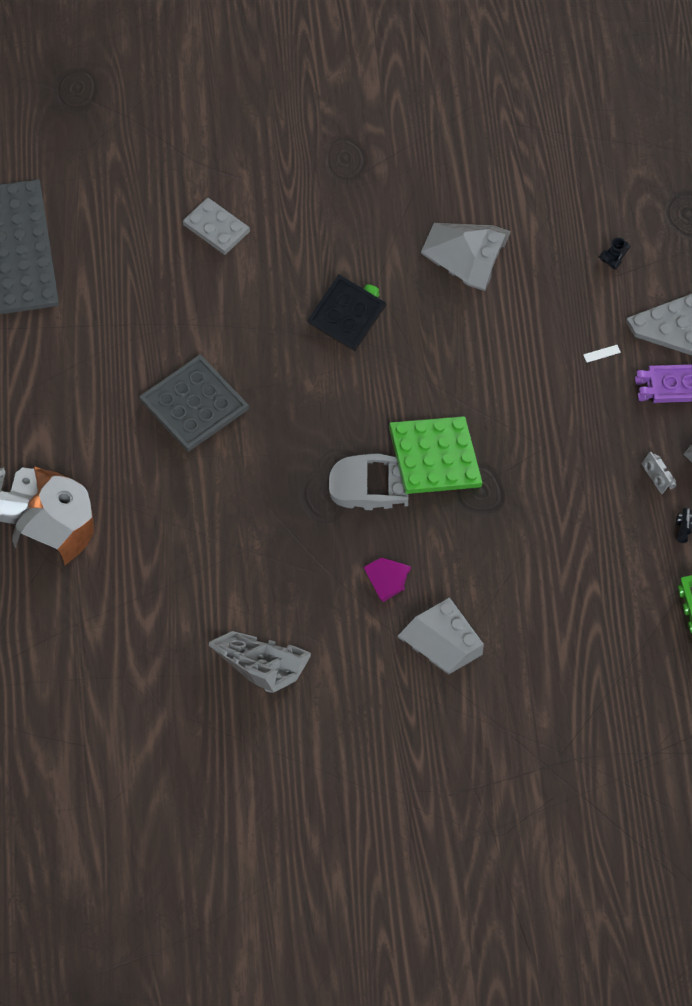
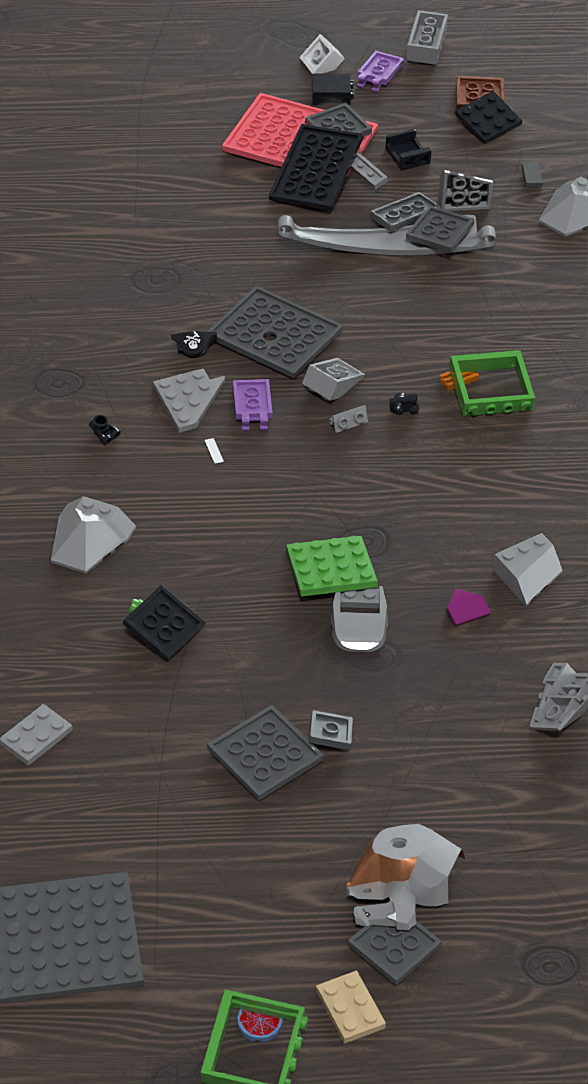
camera: 90 degrees left, 15 degrees down
(217, 453) = (330, 730): none -> dark grey plate

